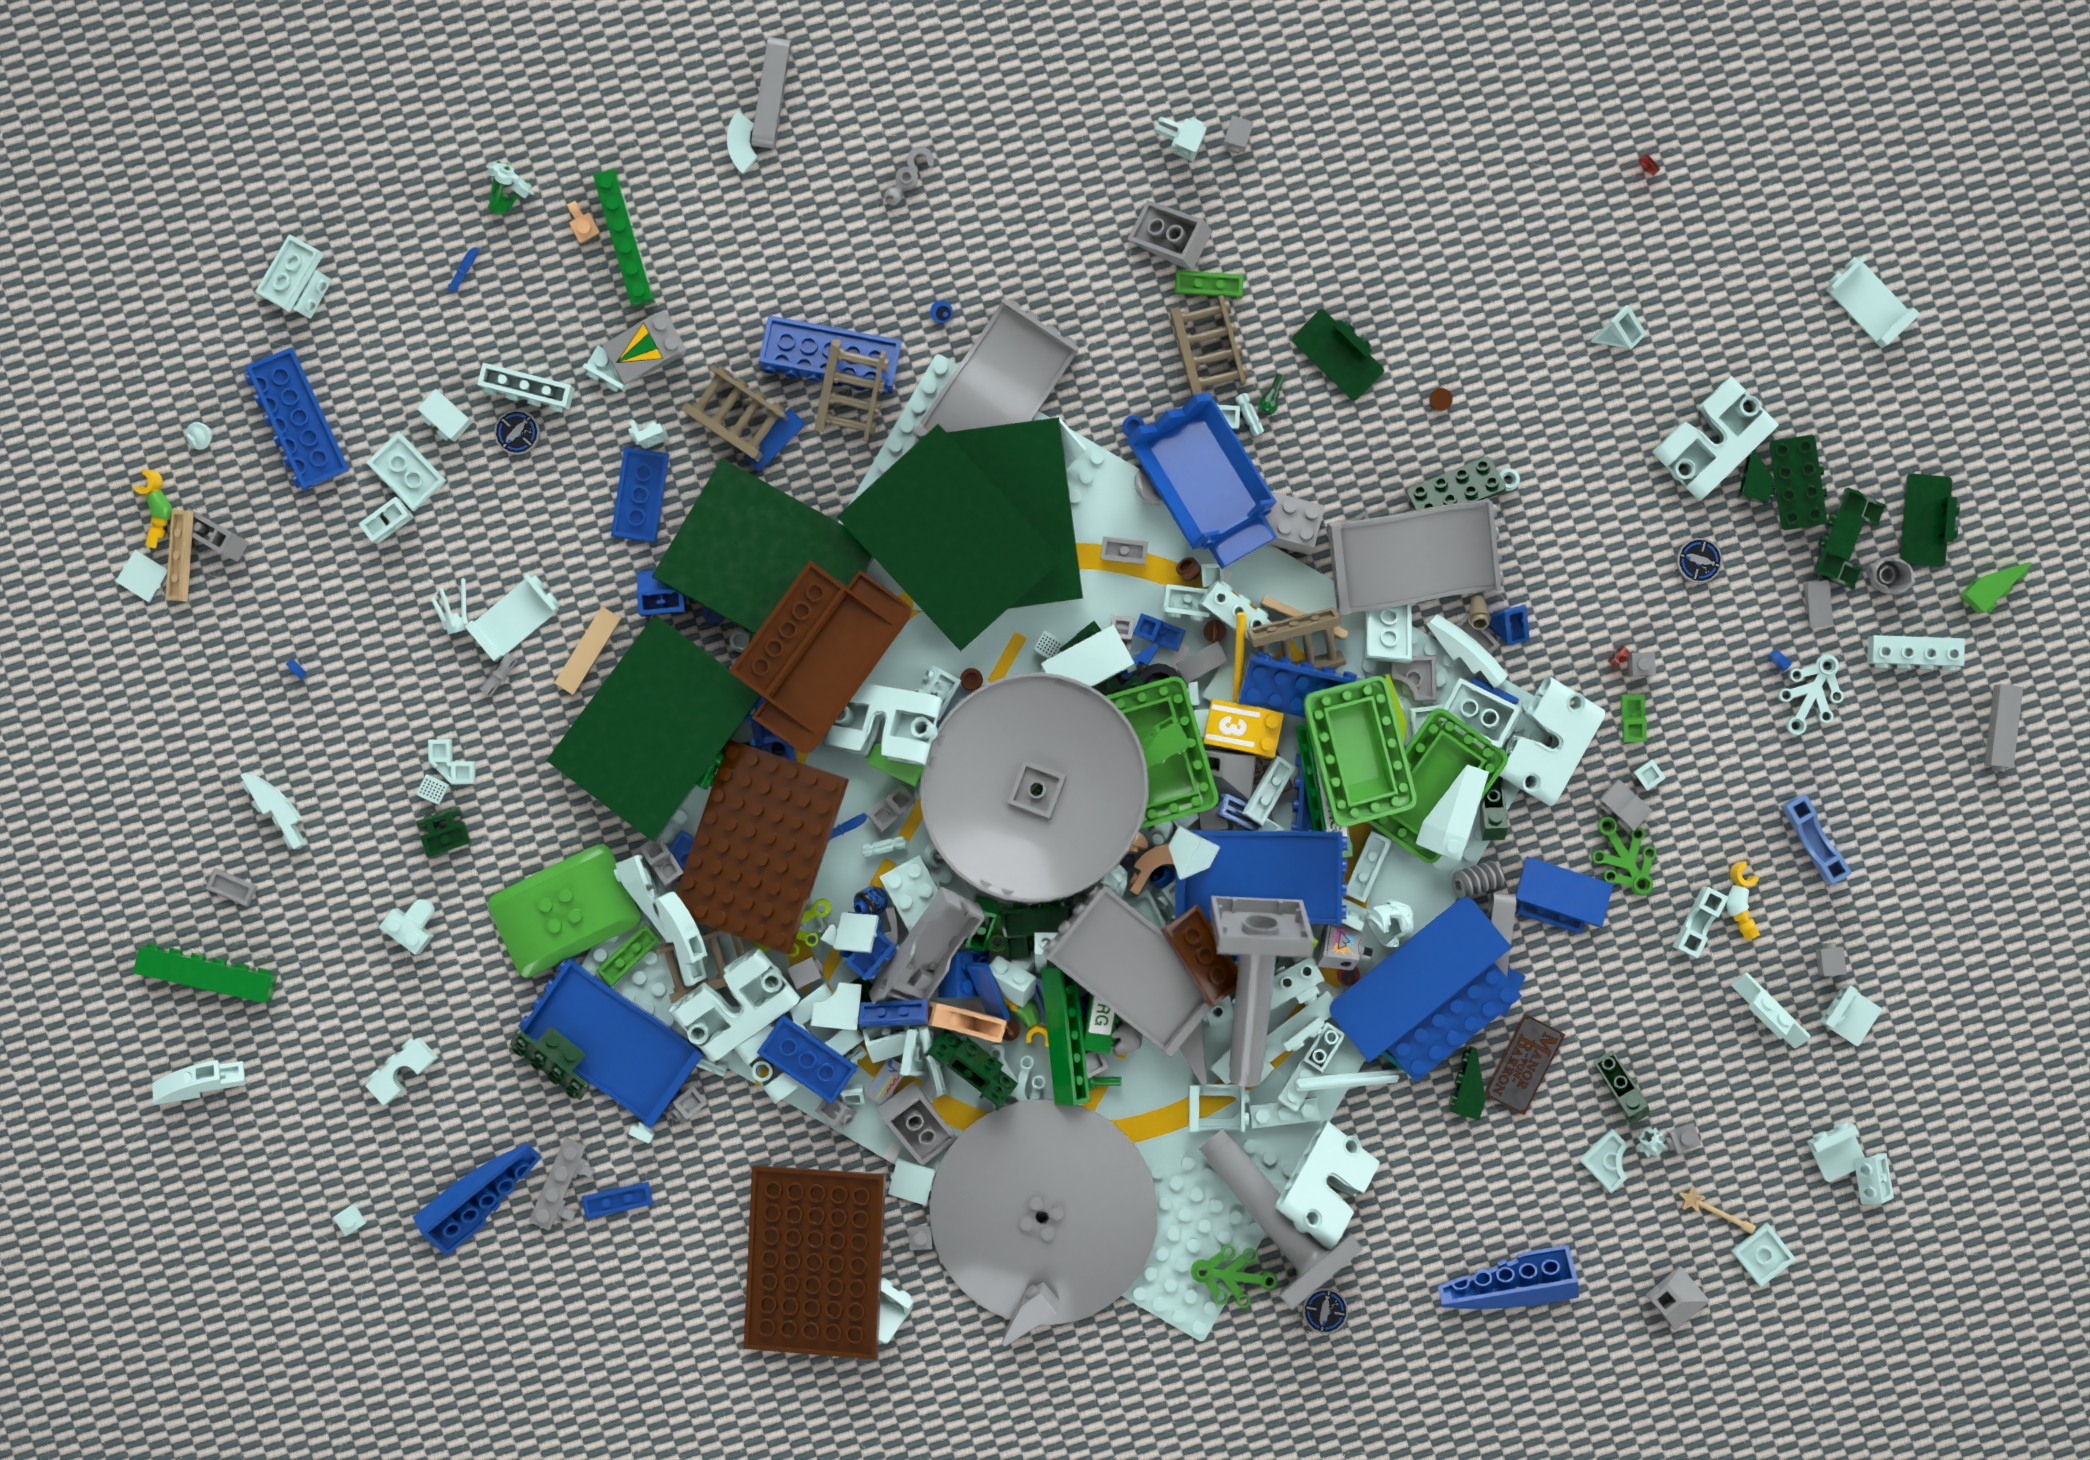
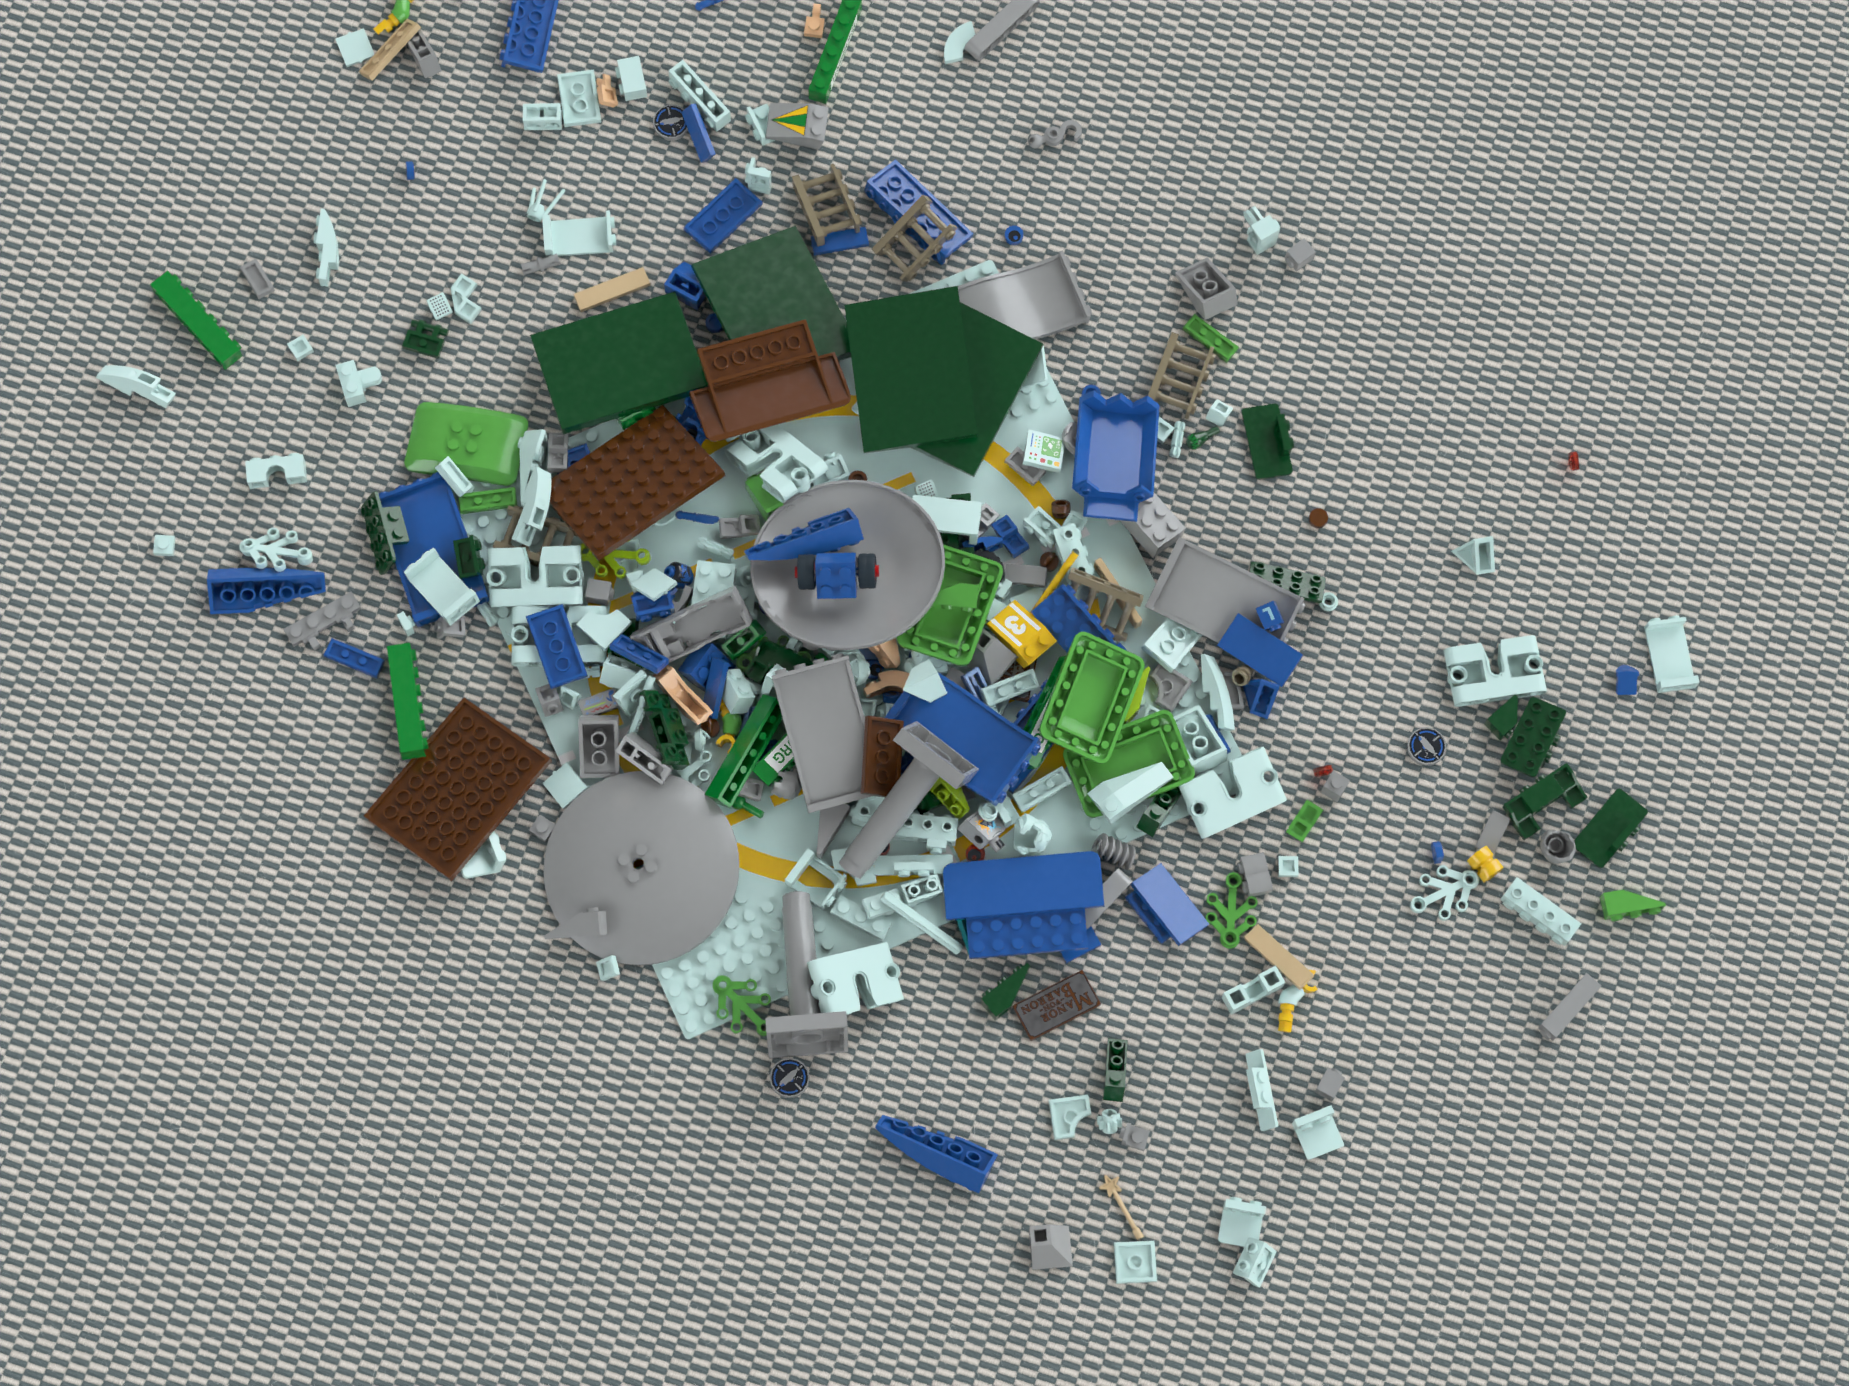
camera: 35 degrees right, 15 degrees down
(328, 929) = (300, 347): none -> light aqua plate
(428, 447) = (606, 93): none -> light nougat plate
(459, 1151) = (251, 547): none -> light aqua plant
(554, 427) = (698, 133): none -> blue tile
(580, 958) = (453, 476): none -> light aqua tile
(652, 1077) = (441, 586): none -> light aqua panel
(656, 1029) = (468, 557): none -> dark green bracket
(701, 1210) = (406, 701): none -> green brick
(966, 1107) = (644, 757): none -> light grey slope
(986, 779) = (820, 536): none -> blue wedge
(1010, 1051) = (700, 739): none -> light aqua hat
(1034, 810) = (836, 574): none -> brick
(1081, 1328) = (608, 968): none -> light aqua tile
(1132, 523) = (1043, 451): none -> light aqua tile
(1270, 357) = (1219, 413): none -> light aqua slope
(1337, 933) = (988, 811): none -> light aqua plate
(1470, 542) = (1270, 616): none -> blue brick
(1481, 581) = (1260, 650): none -> blue tile
(1702, 872) = (1278, 956): none -> tan tile
(1820, 850) = (1376, 990): medium blue arch -> none
(1835, 642) = (1485, 864): none -> yellow wheel
(1846, 357) = (1626, 680): none -> blue tile

